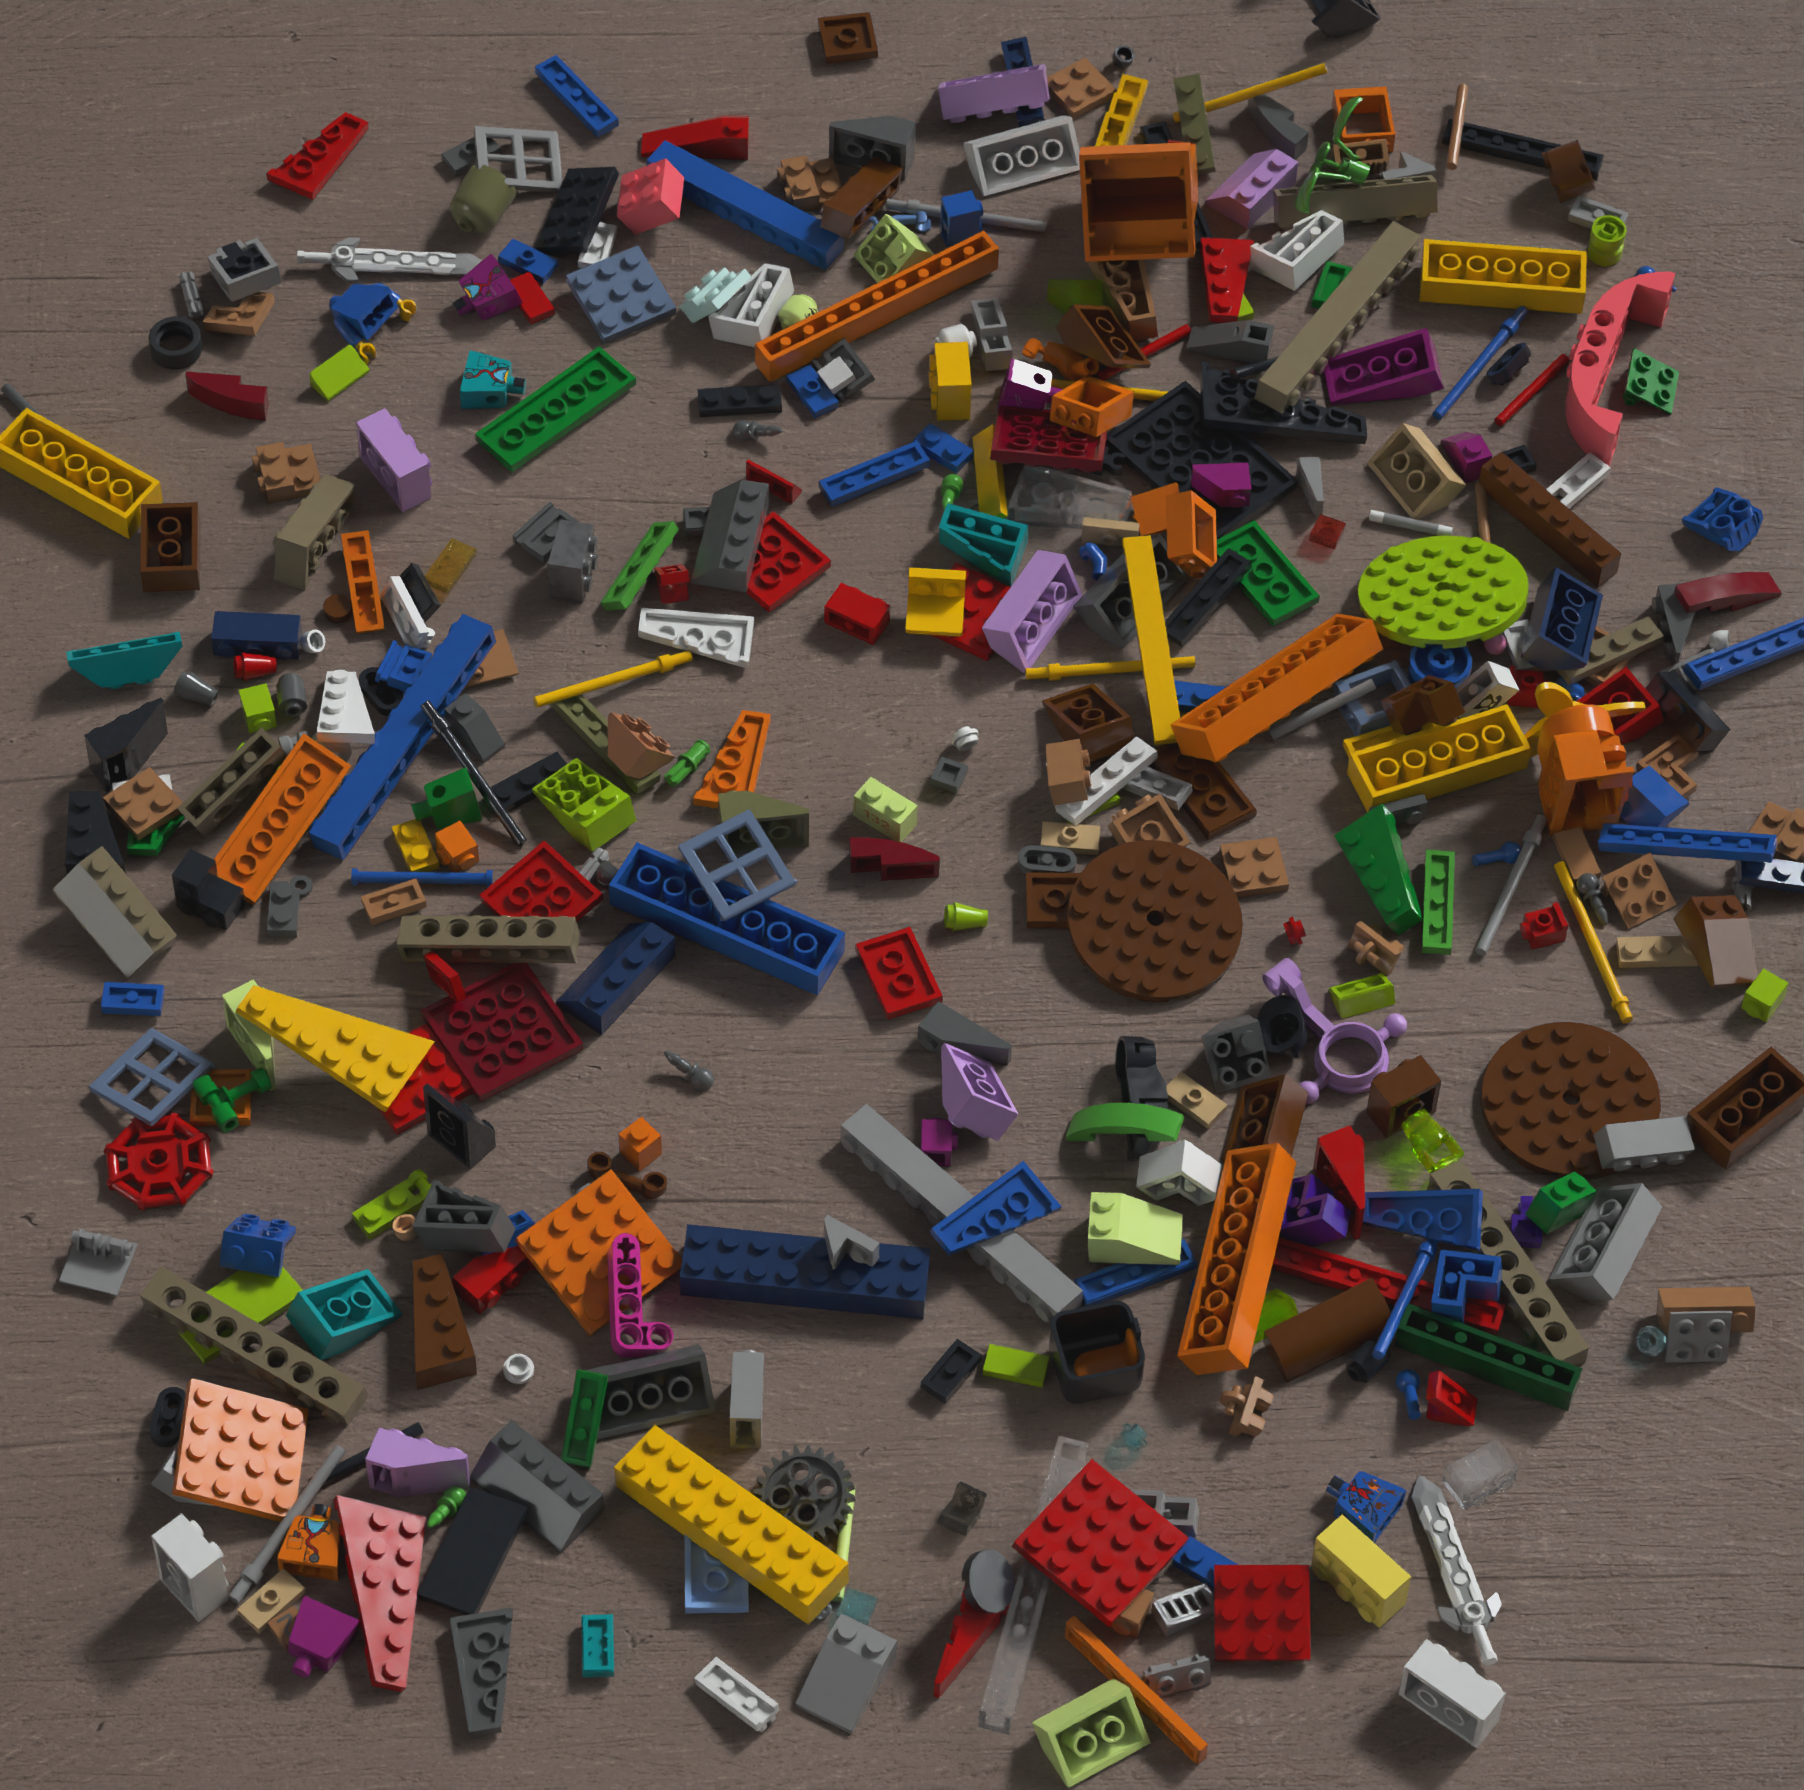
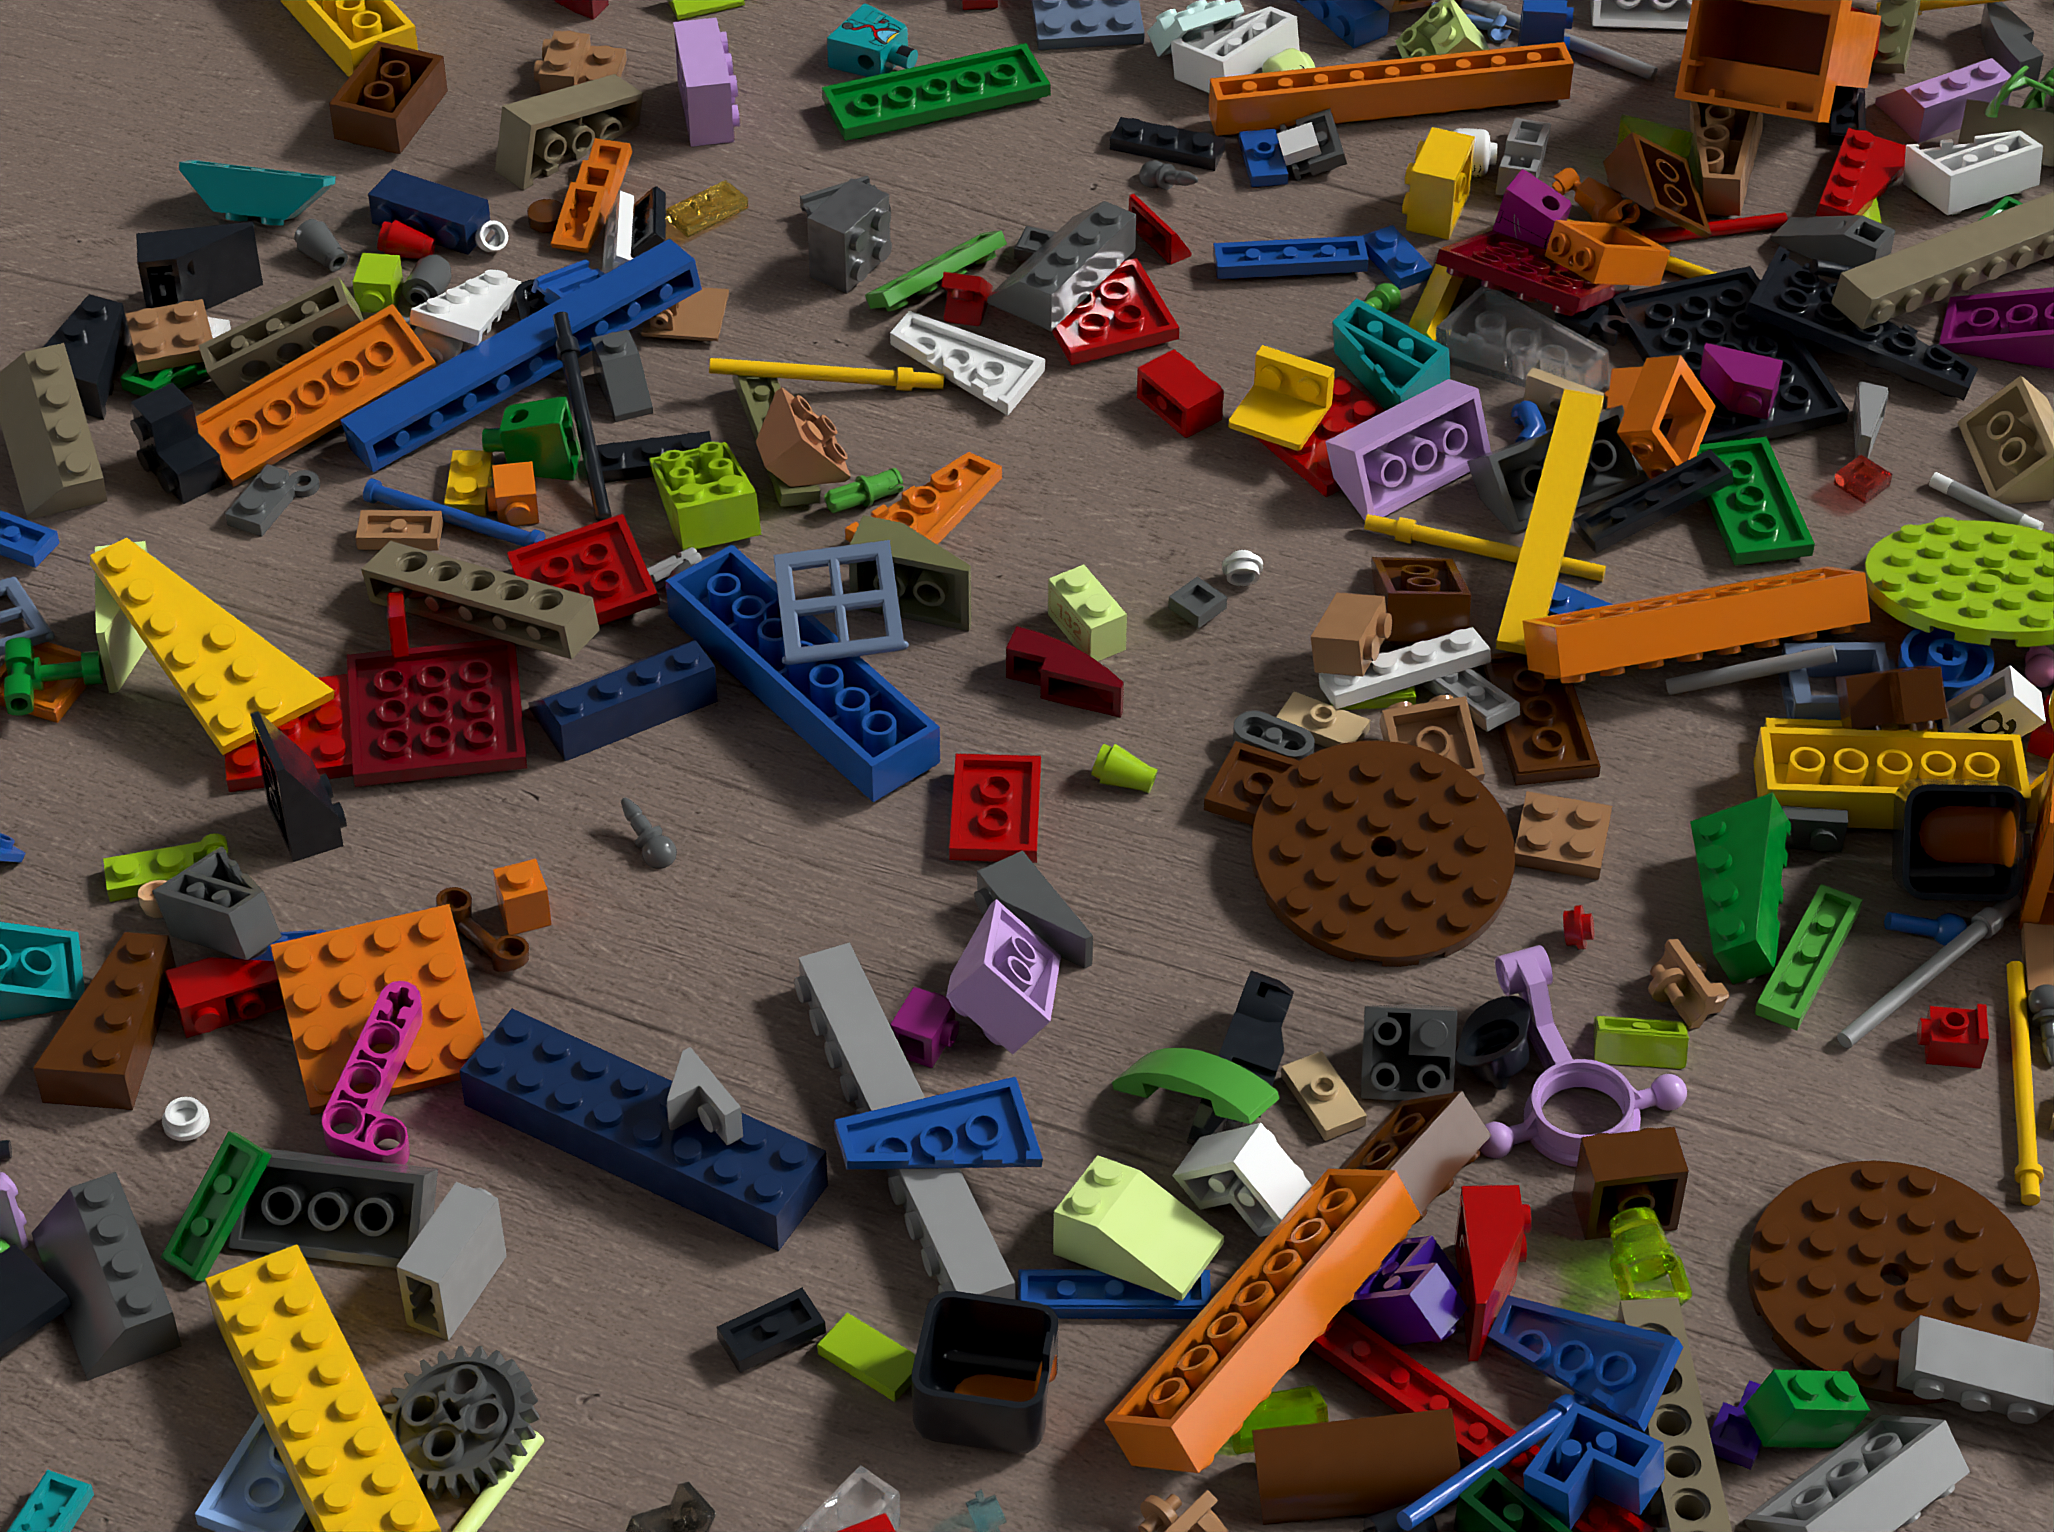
camera: 25 degrees right, 10 degrees down
(1501, 794) = (1959, 839): none -> black piece

